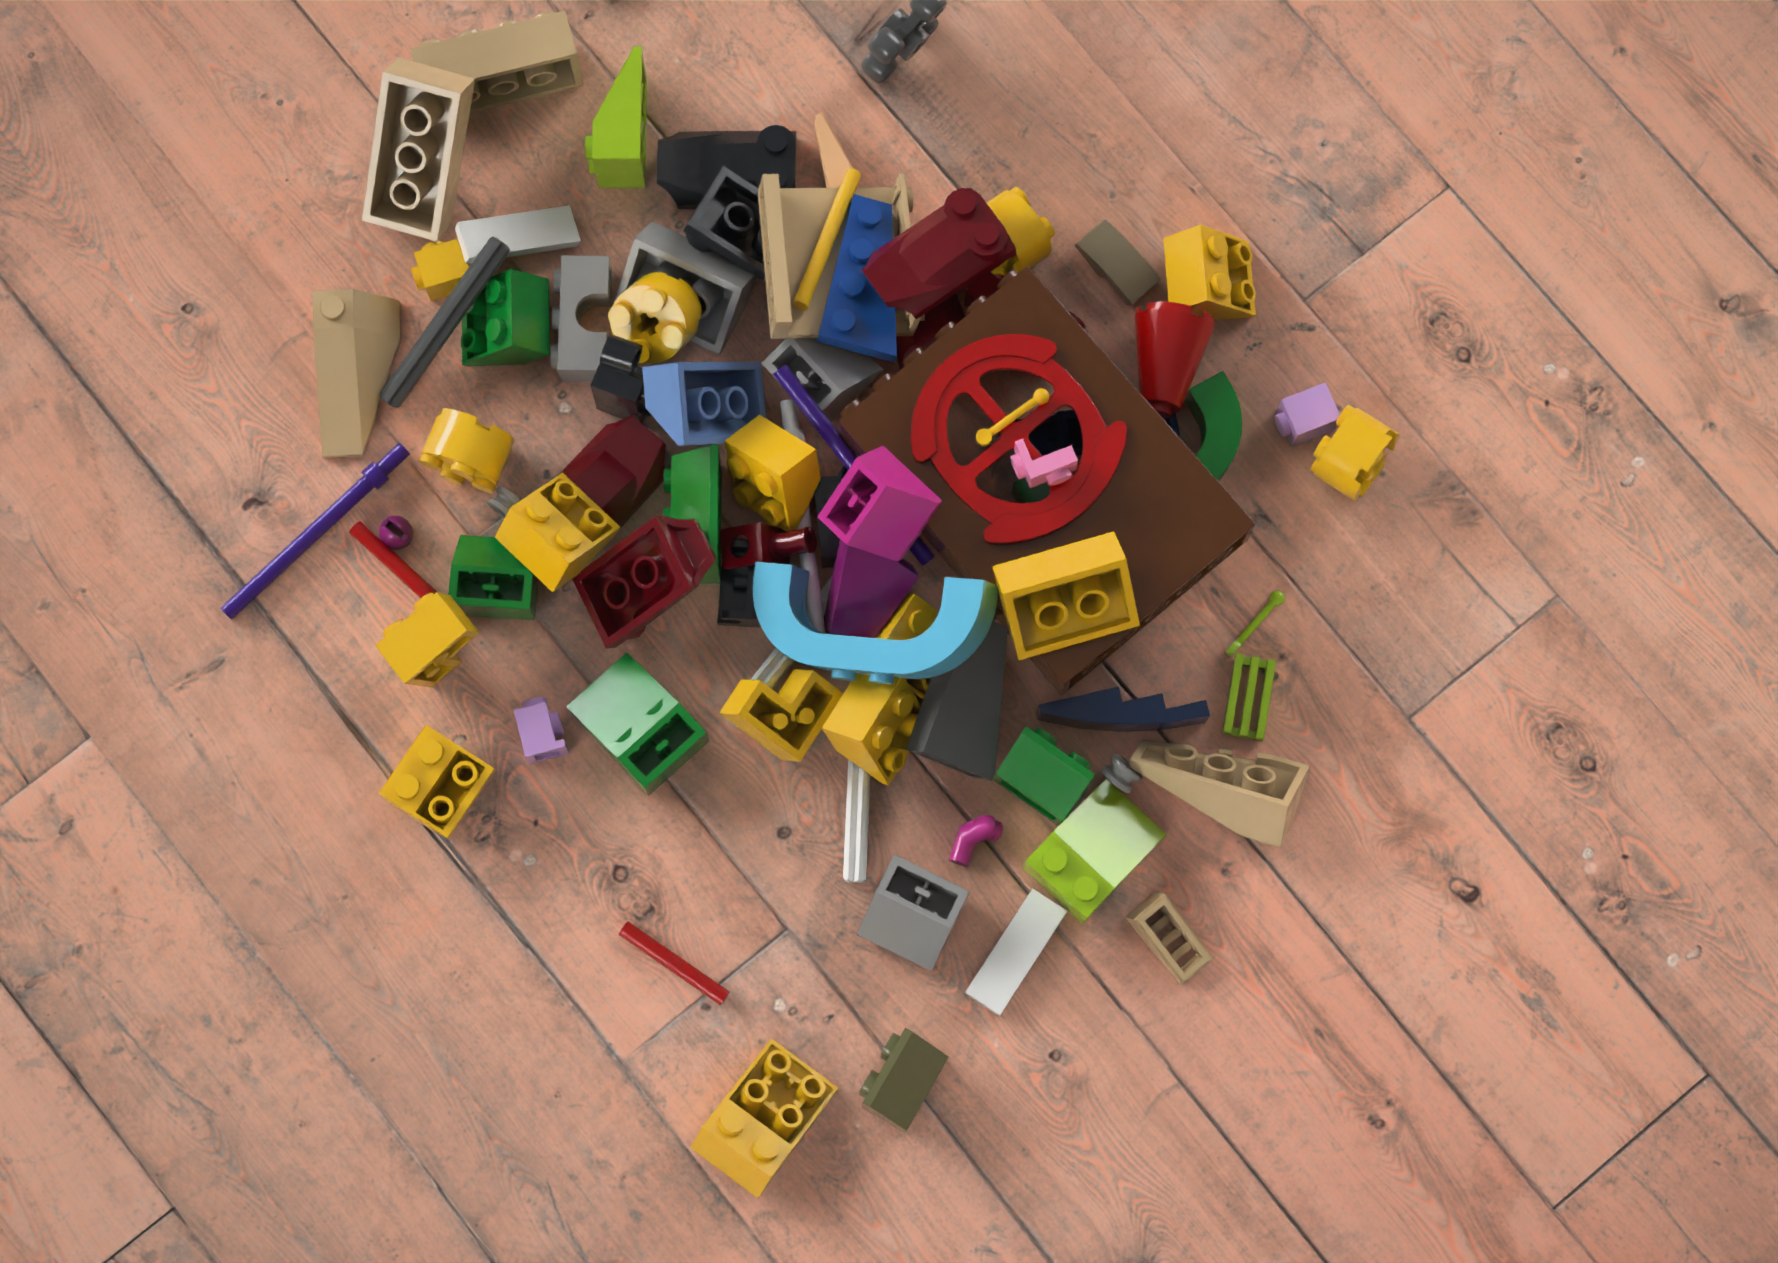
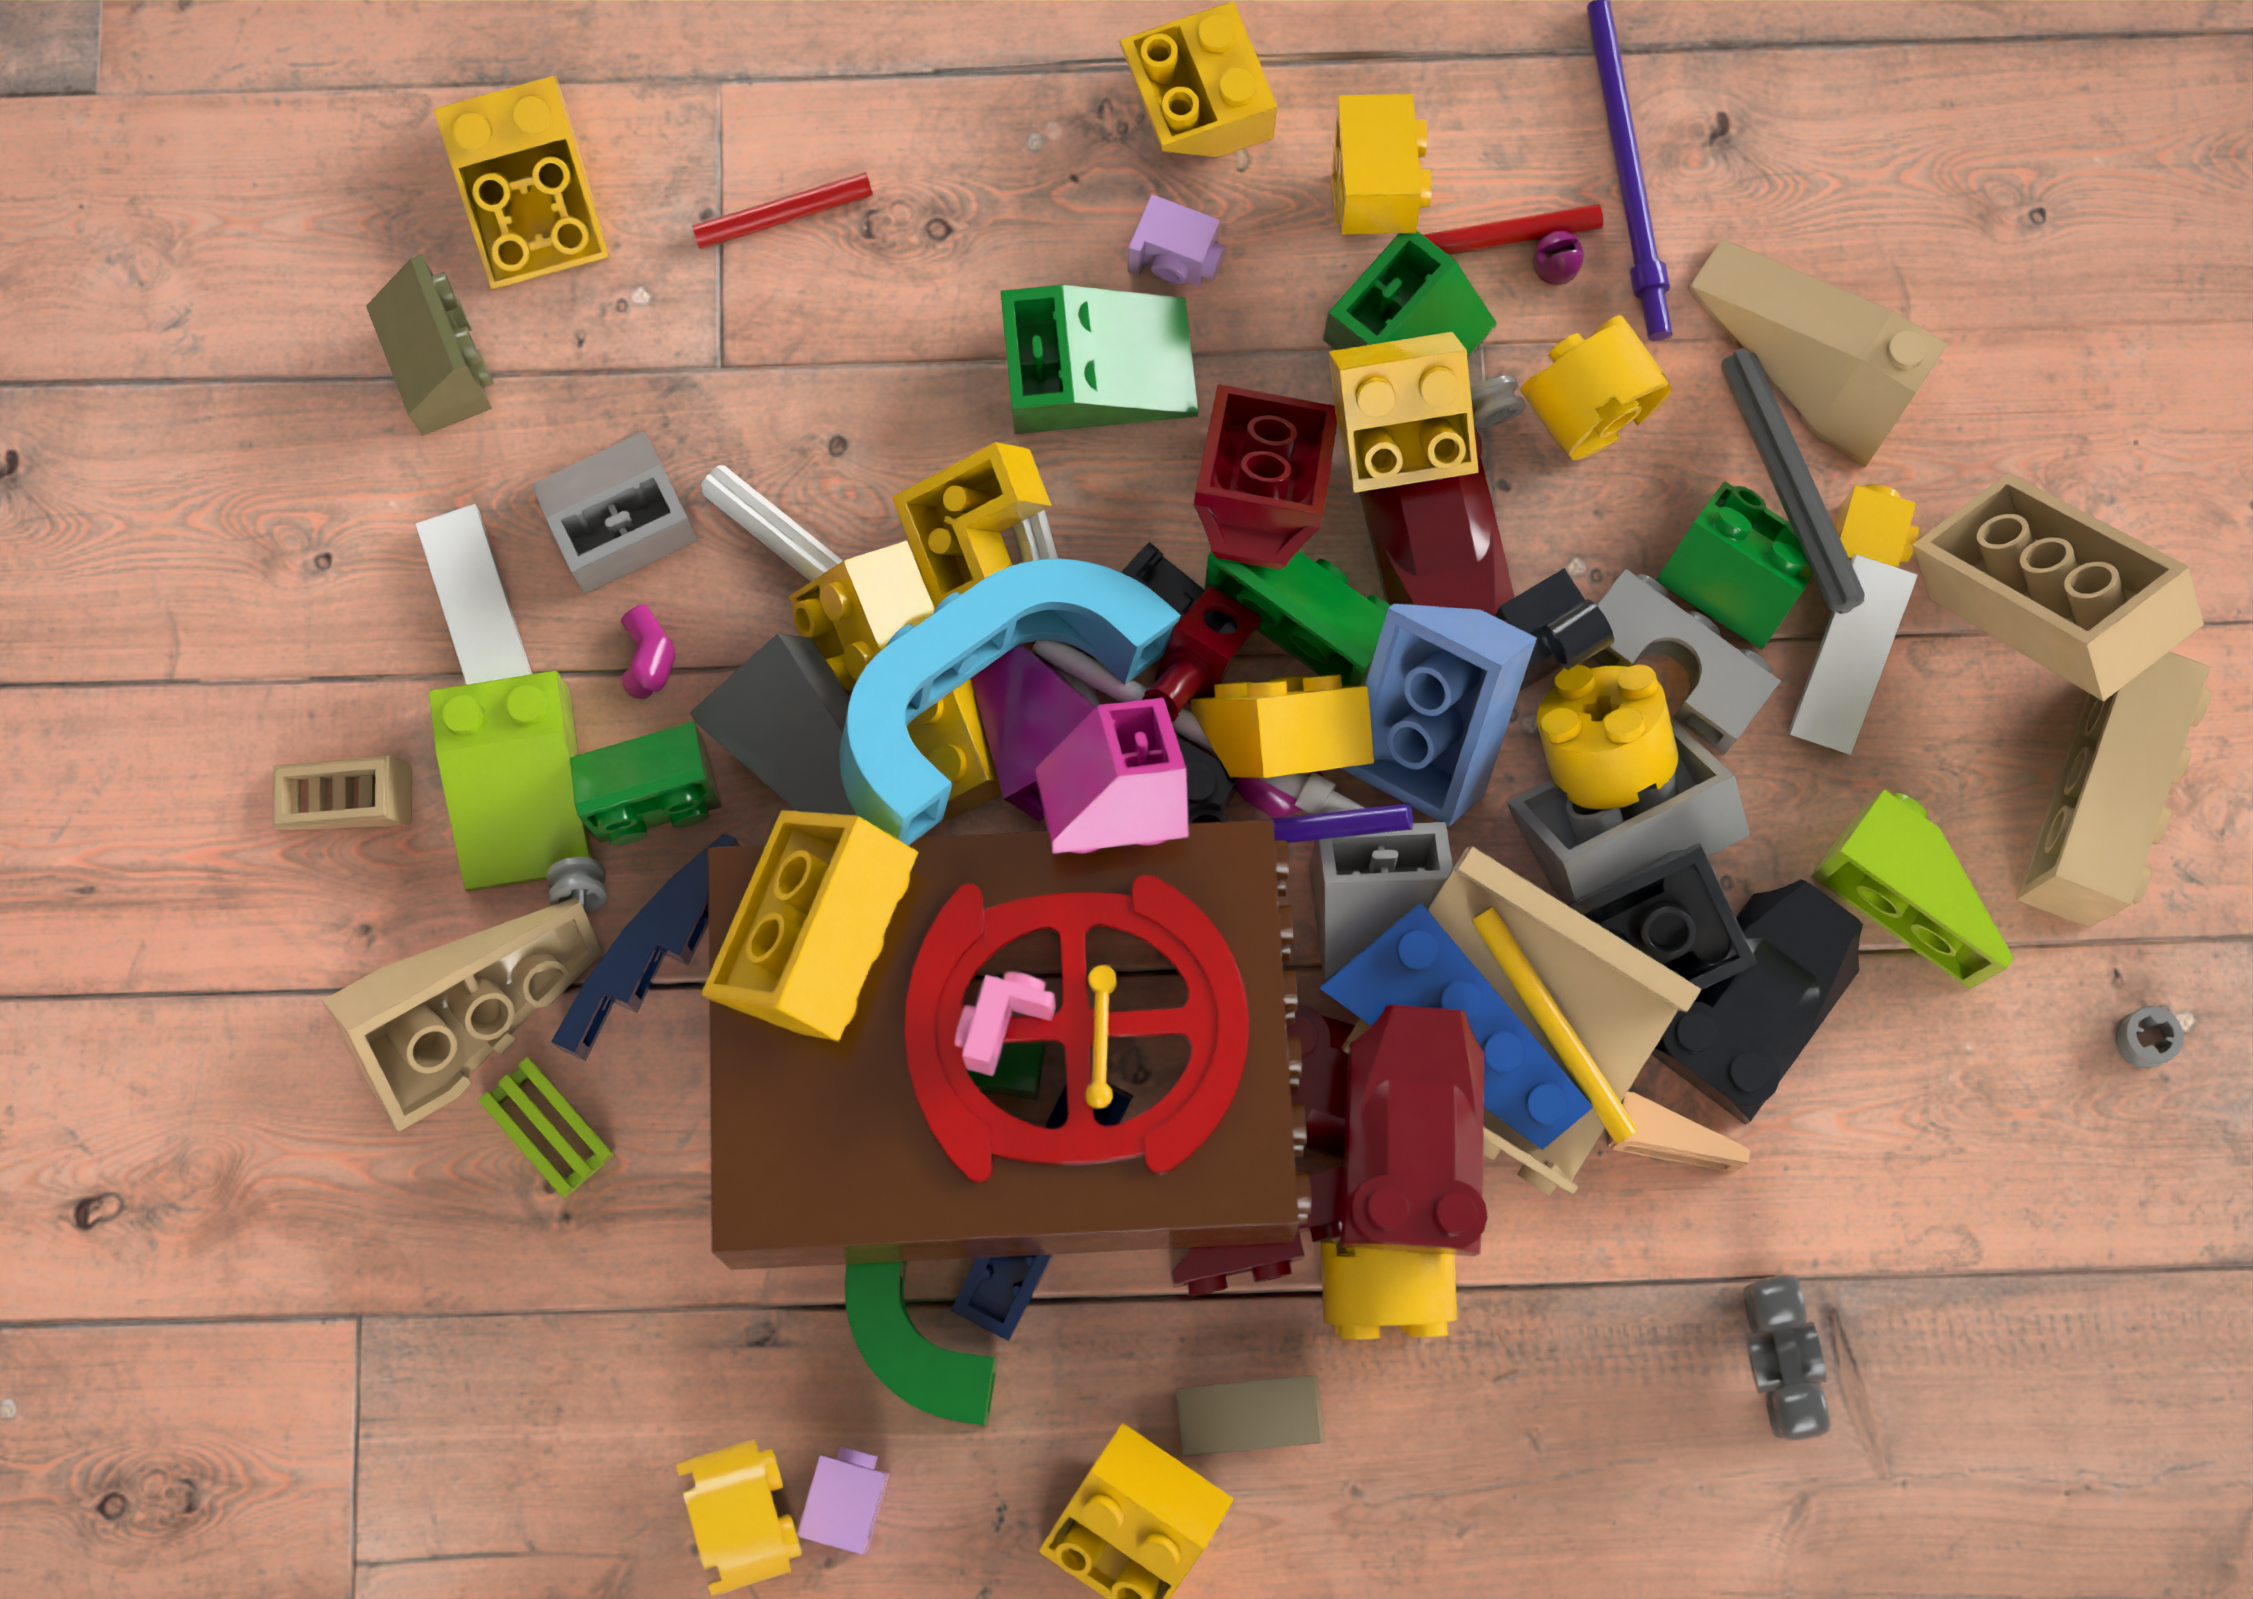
camera: 130 degrees right, 0 degrees up
(1169, 352) = (1057, 1364): red cone -> none
(1276, 599) = (641, 1265): lime hinge -> none

